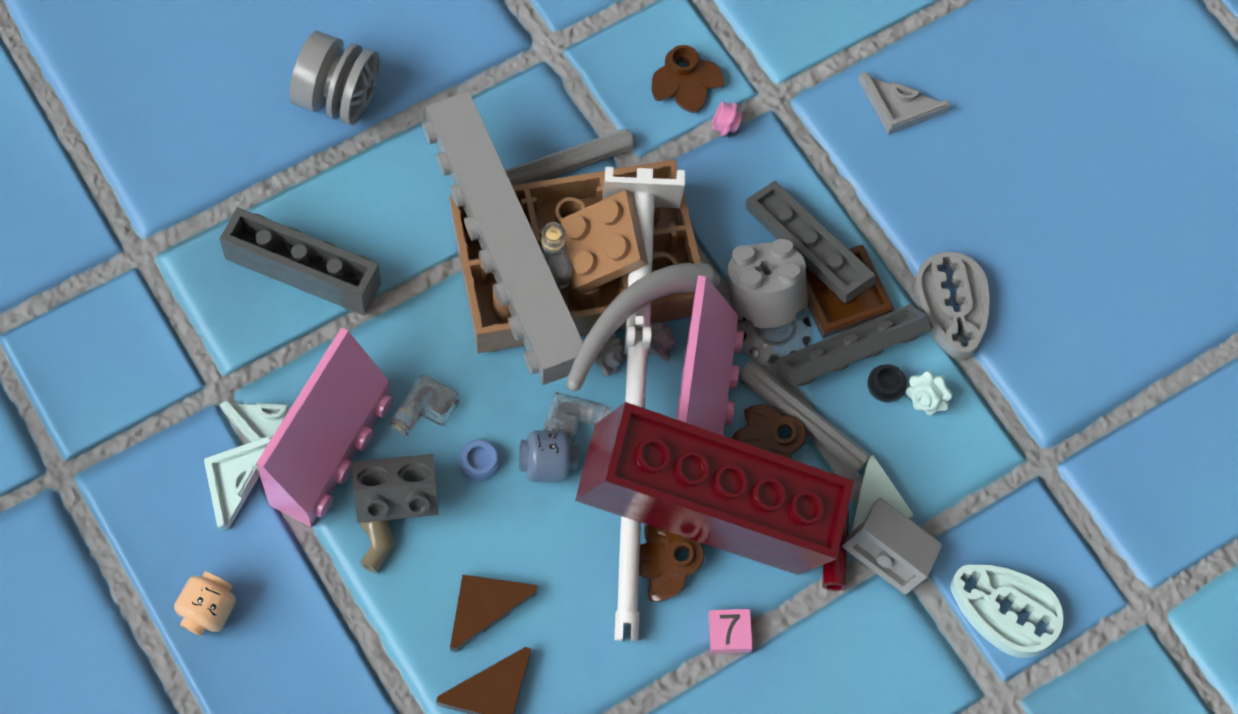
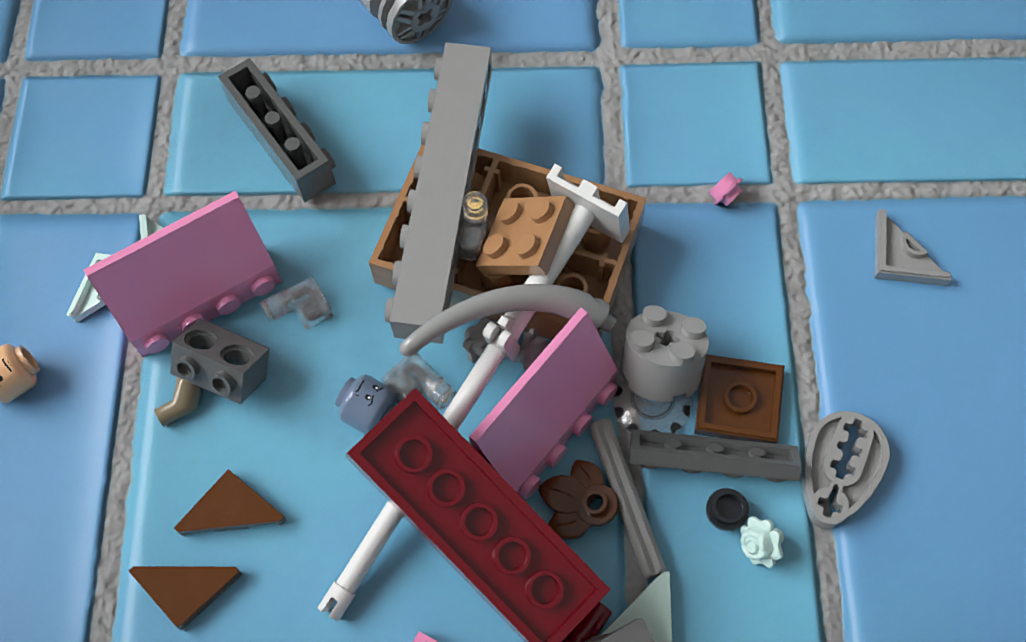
camera: 40 degrees right, 0 degrees up
(479, 460) = (313, 376): medium blue tile -> none
(571, 158) = (565, 157): light grey axle -> none
(661, 565) = (404, 560): reddish brown plate -> none
(686, 84) = (709, 142): reddish brown plate -> none
(820, 249) = (732, 339): dark grey plate -> none

